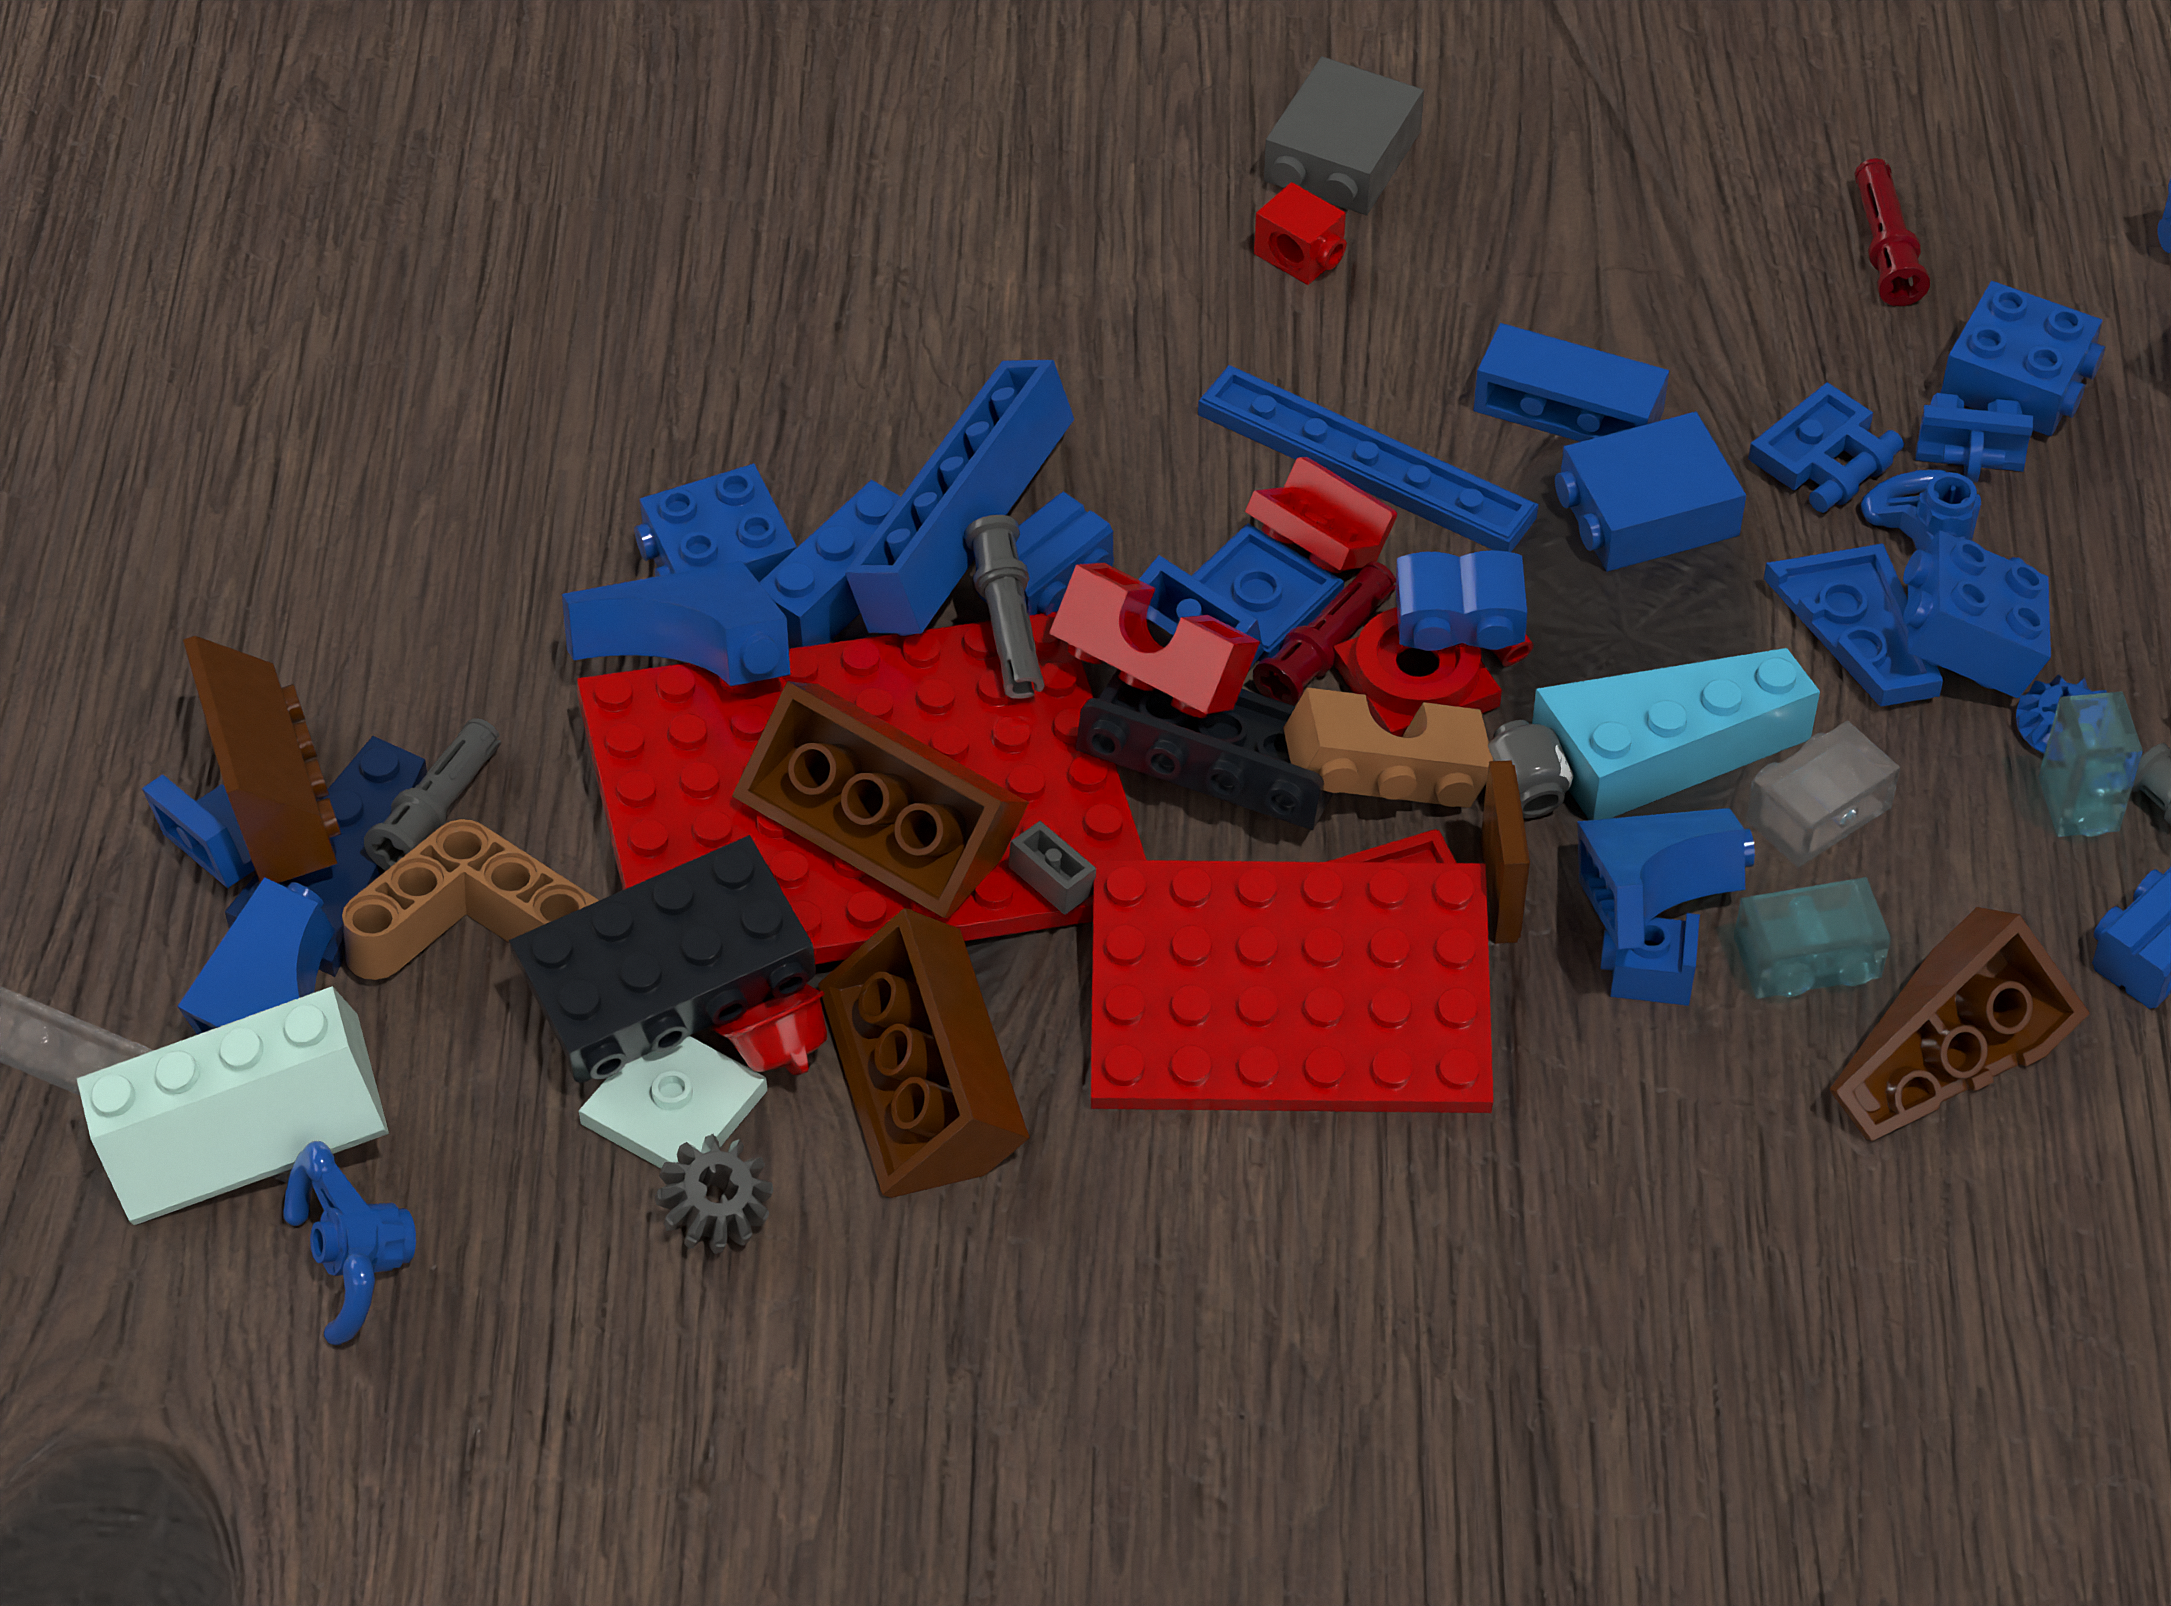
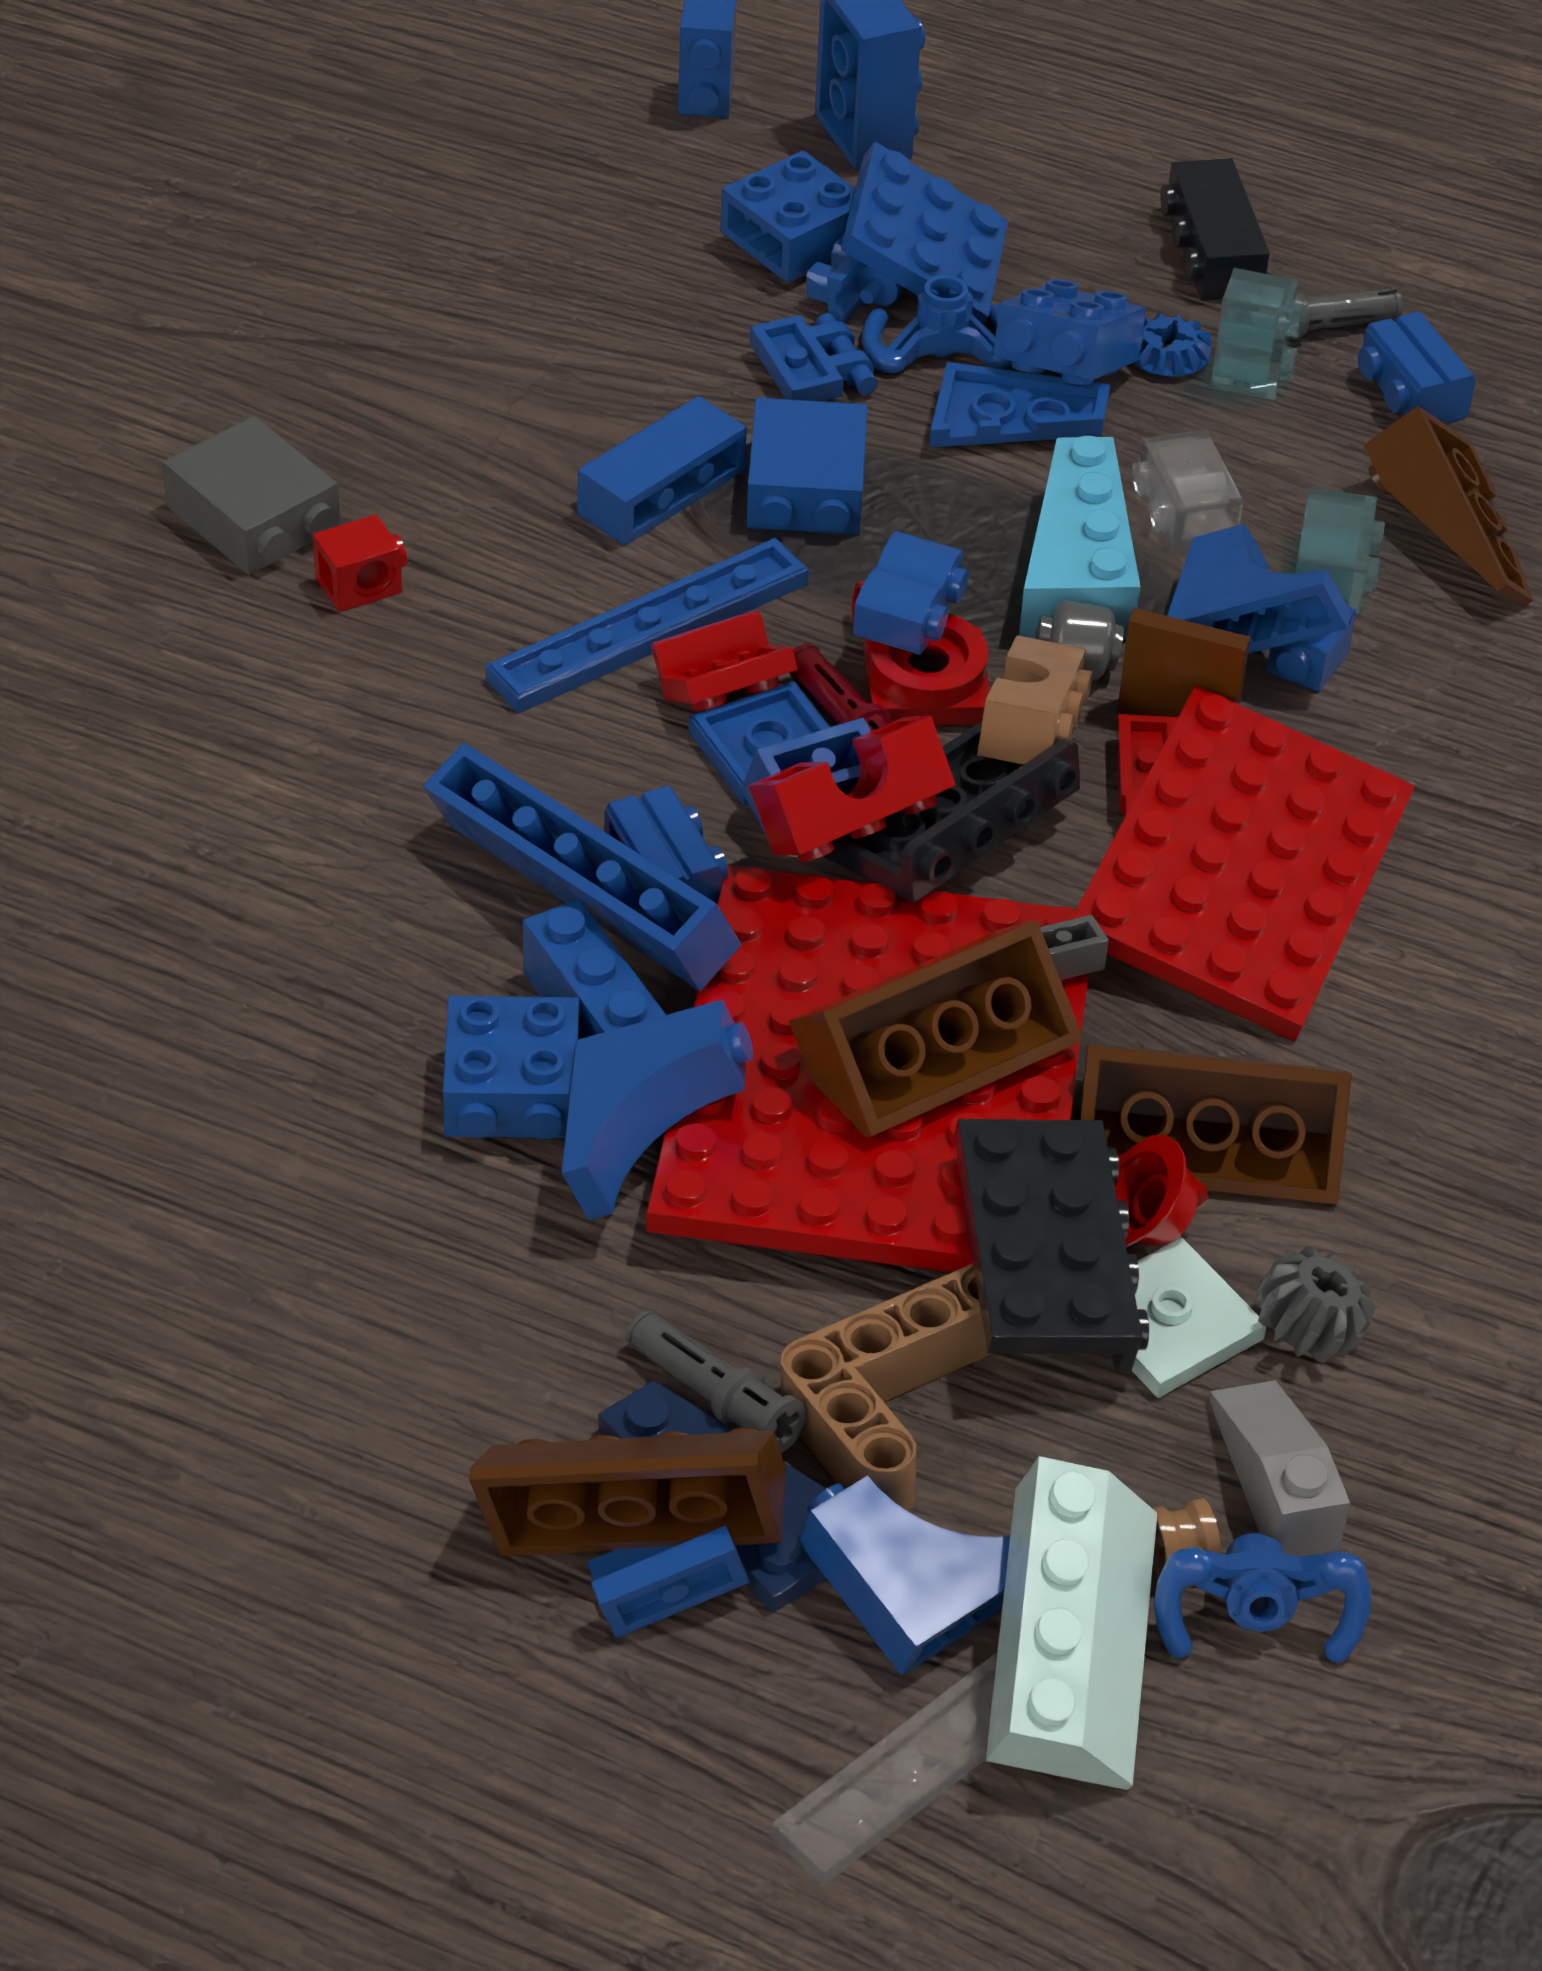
camera: 70 degrees left, 5 degrees down
(399, 1171) = (1184, 1528): none -> medium nougat wheel
(515, 1224) = (1282, 1468): none -> light grey slope
(1002, 583) = (713, 866): dark grey pin -> none
(1893, 247) = (616, 246): dark red pin -> none
(2058, 459) = (922, 228): none -> blue plate

